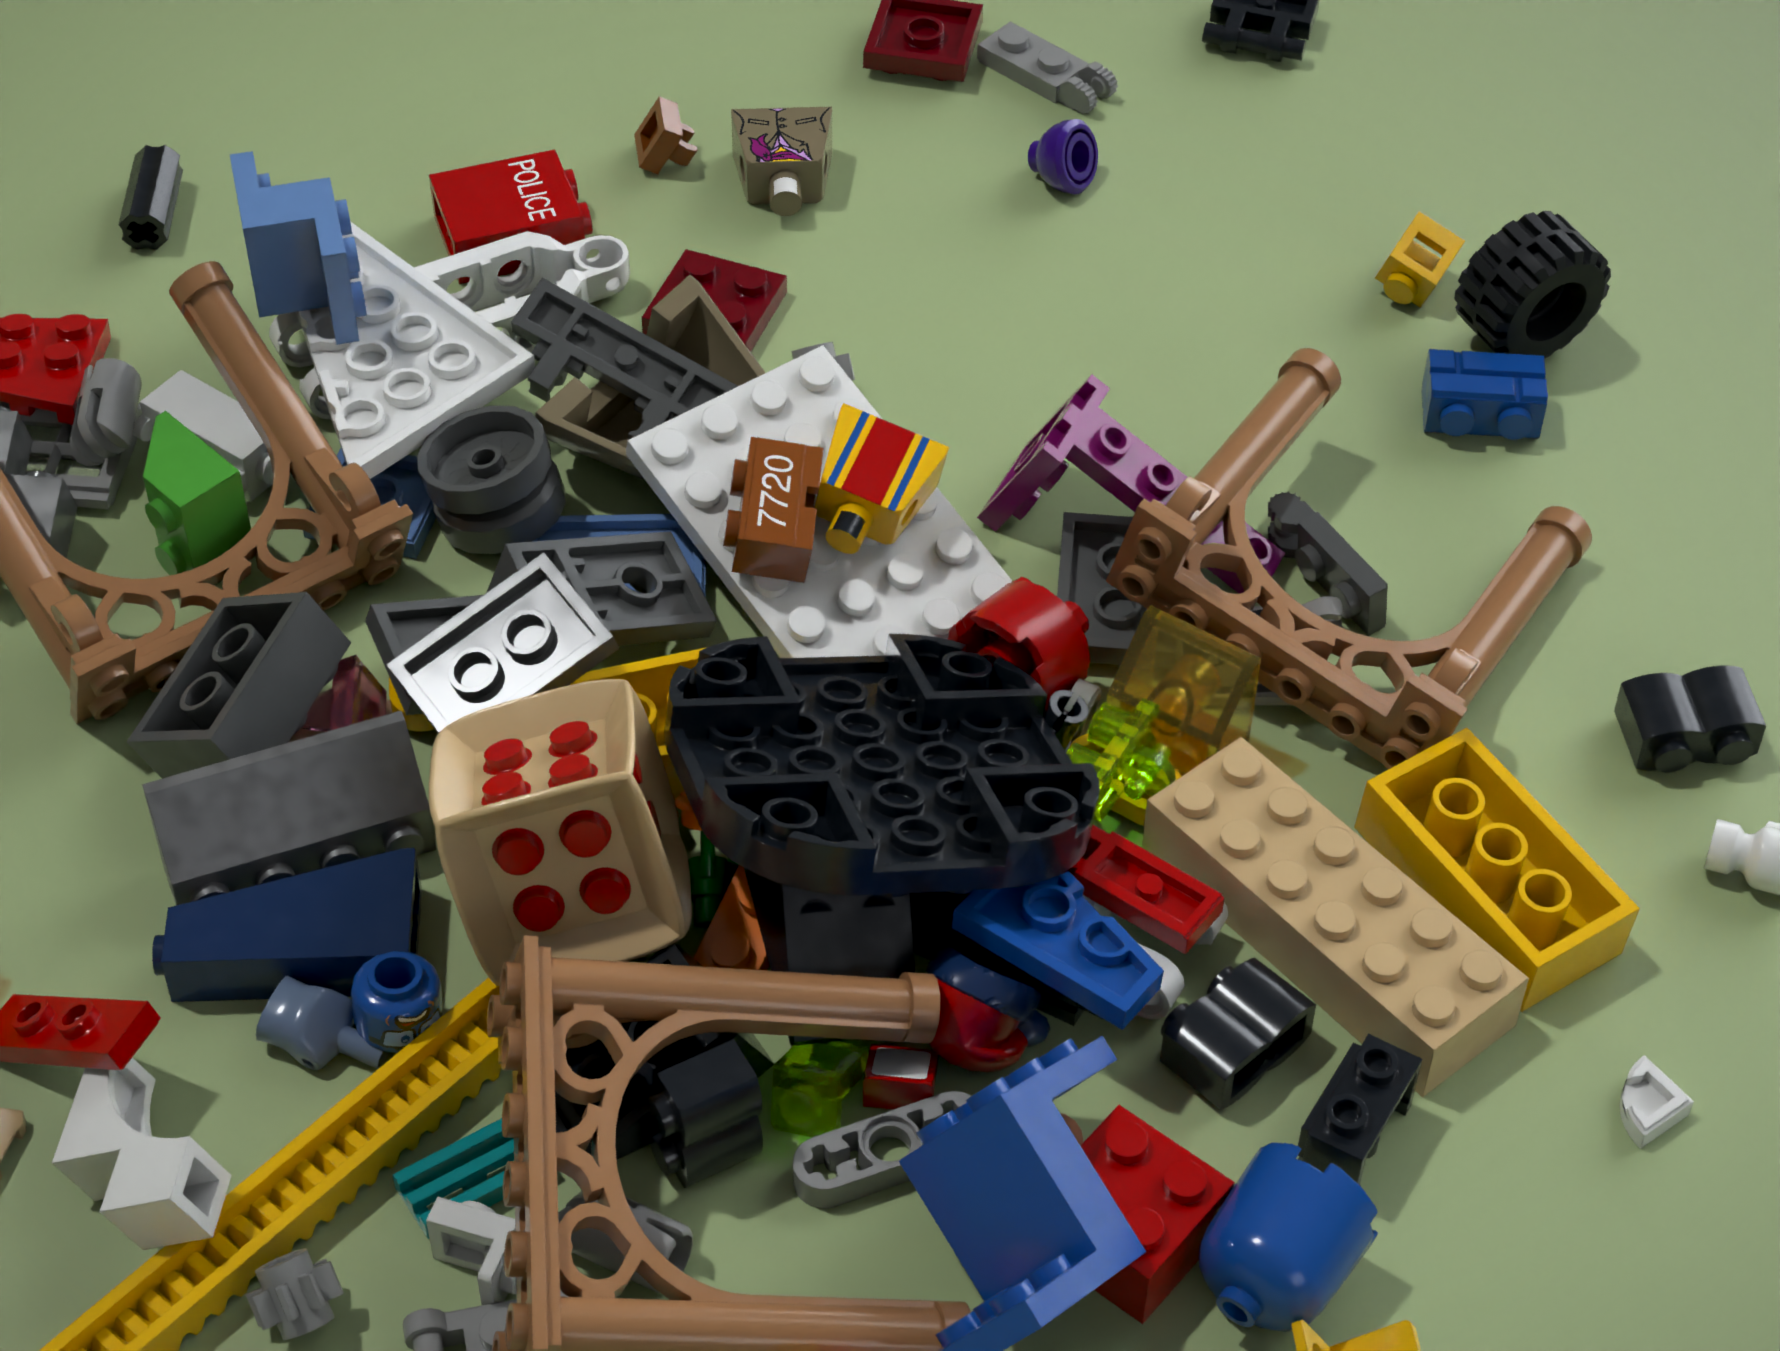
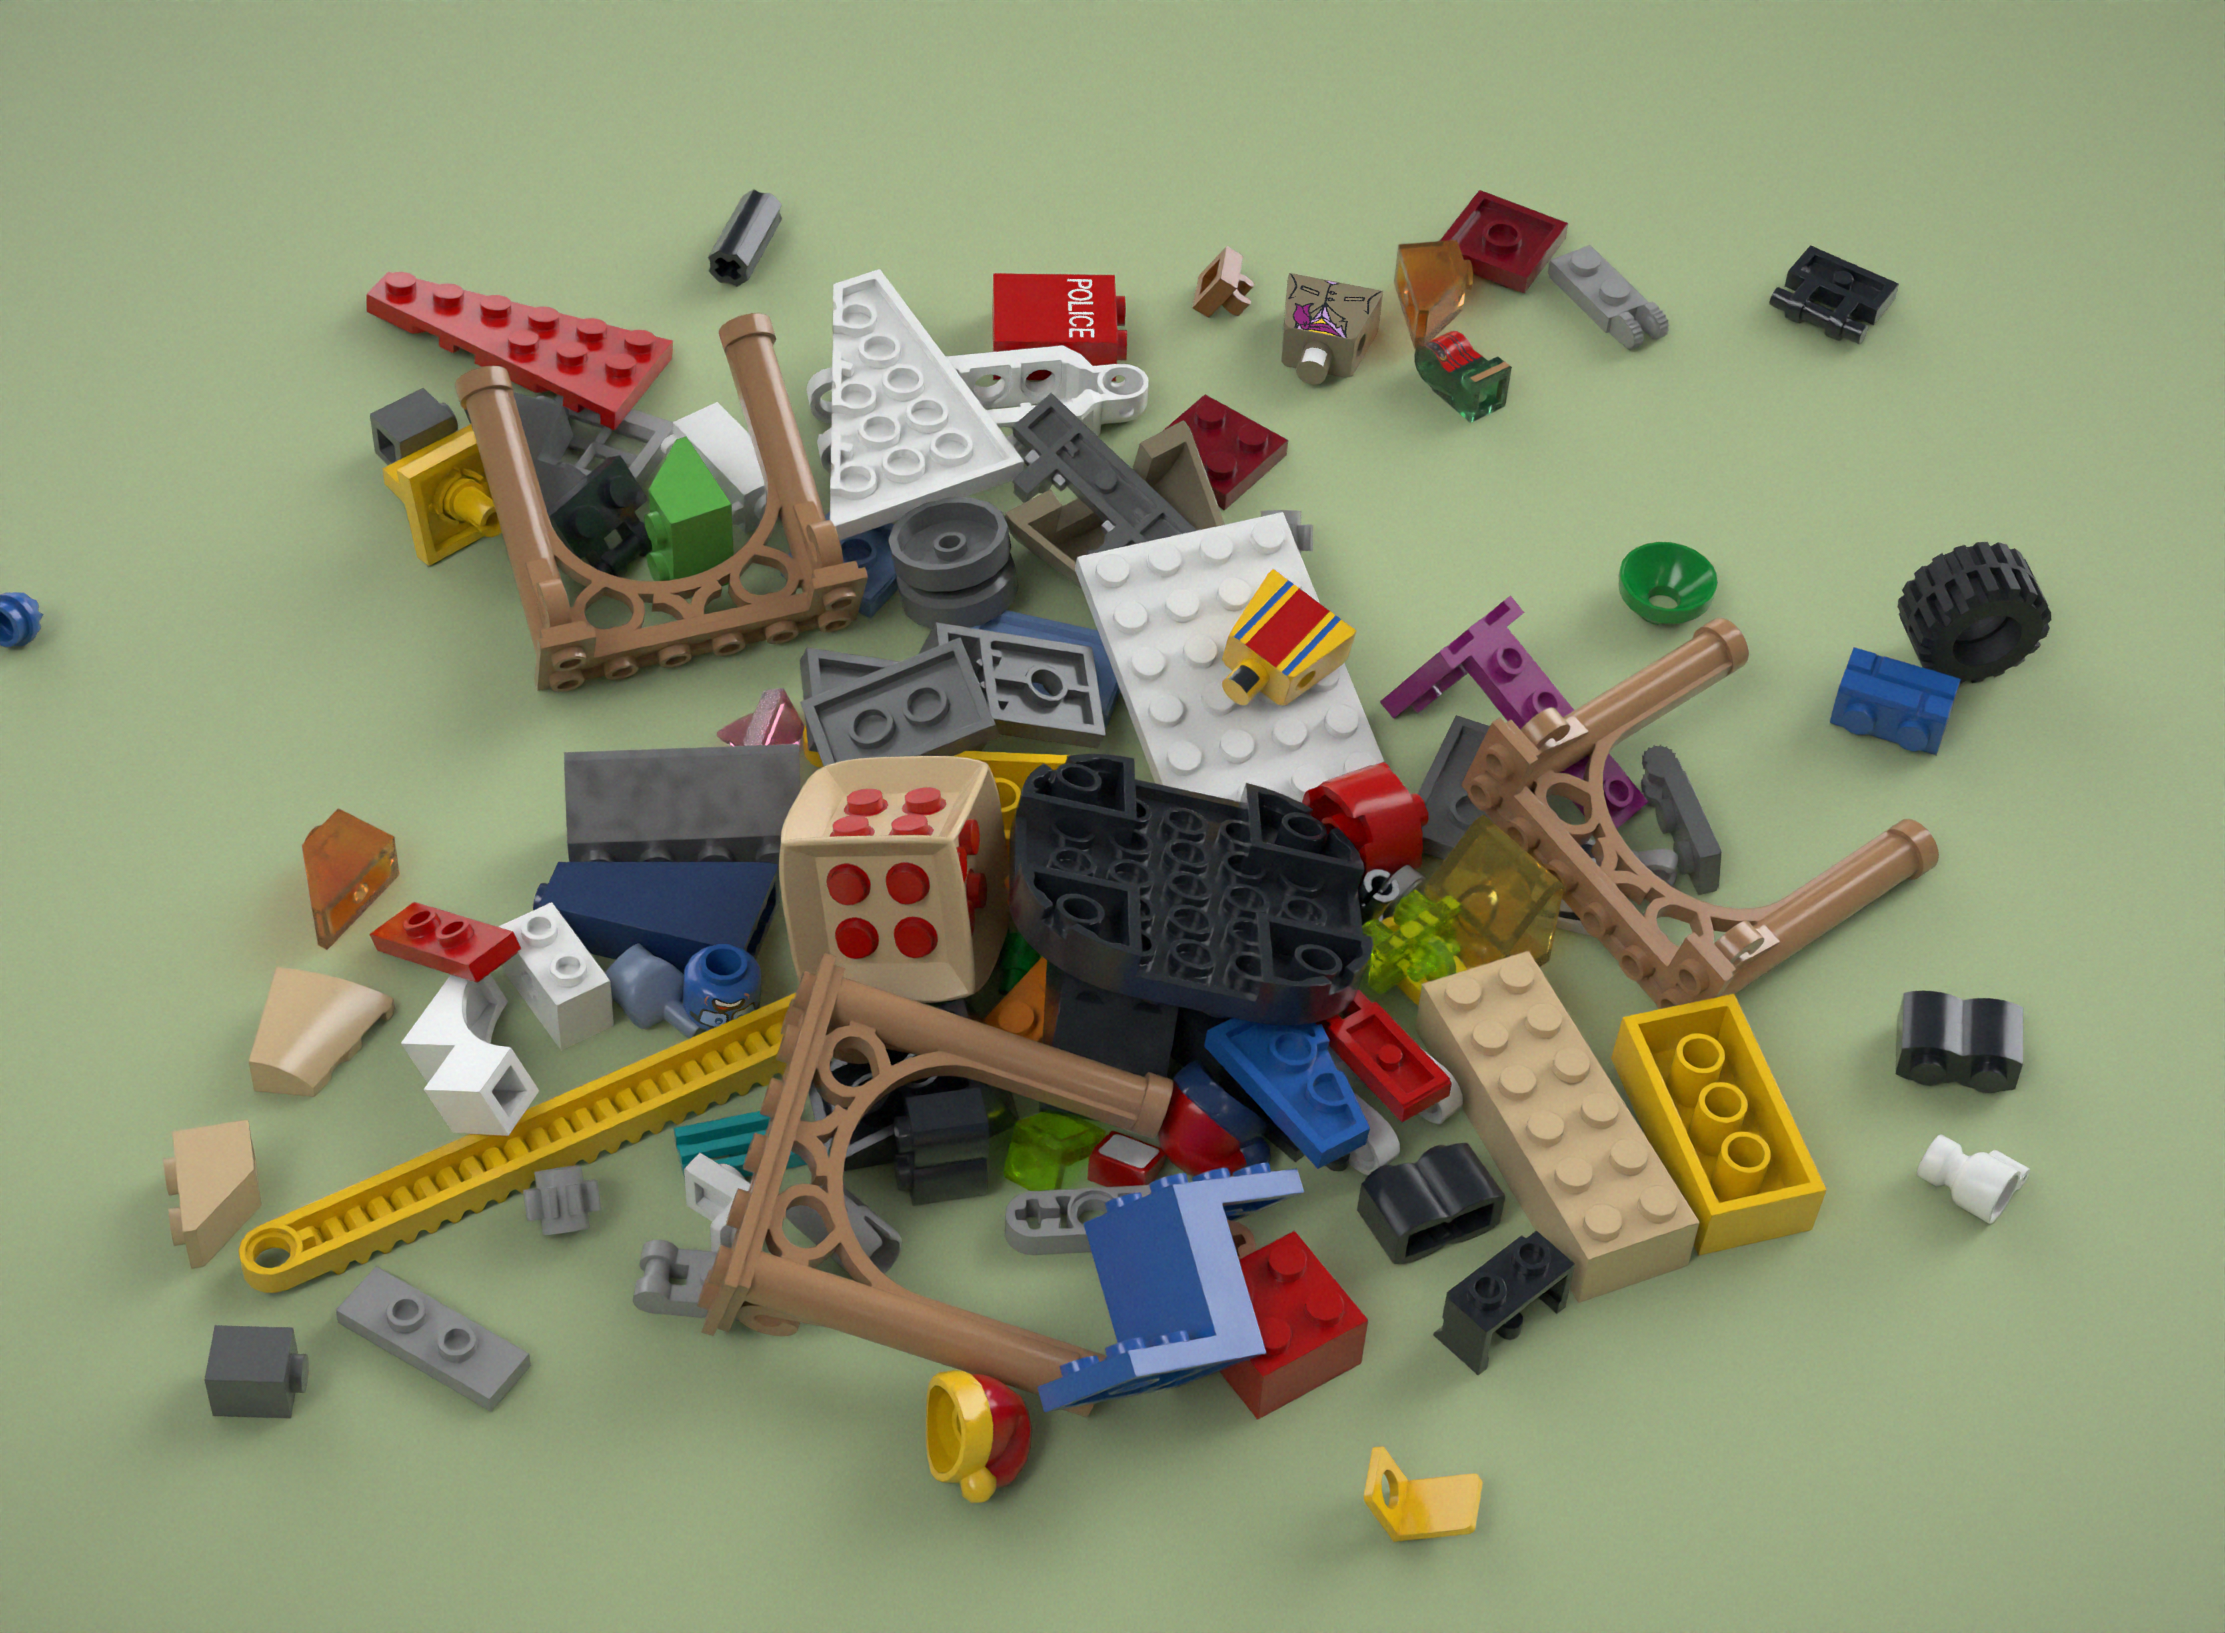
camera: 15 degrees right, 0 degrees up
(89, 507) = (596, 508): none -> black plate
(105, 411) = (642, 422): light grey arm -> none
(209, 1038) = (559, 977): none -> white brick
(241, 683) = (679, 688): dark grey brick -> none
(299, 247) = (842, 317): medium blue bracket -> none
(776, 510) = (1183, 649): dark orange brick -> none
(871, 94) = (1431, 286): none -> clear orange slope
(936, 173) = (1462, 374): none -> clear green leg
(1065, 156) = (1590, 387): dark purple brick -> none
(1222, 319) = (1670, 572): none -> green piece
(1285, 1240) = (1394, 1380): blue cylinder -> none
(1413, 270) = (1884, 562): yellow brick -> none
(1651, 1103) = (1779, 1361): white tile -> none

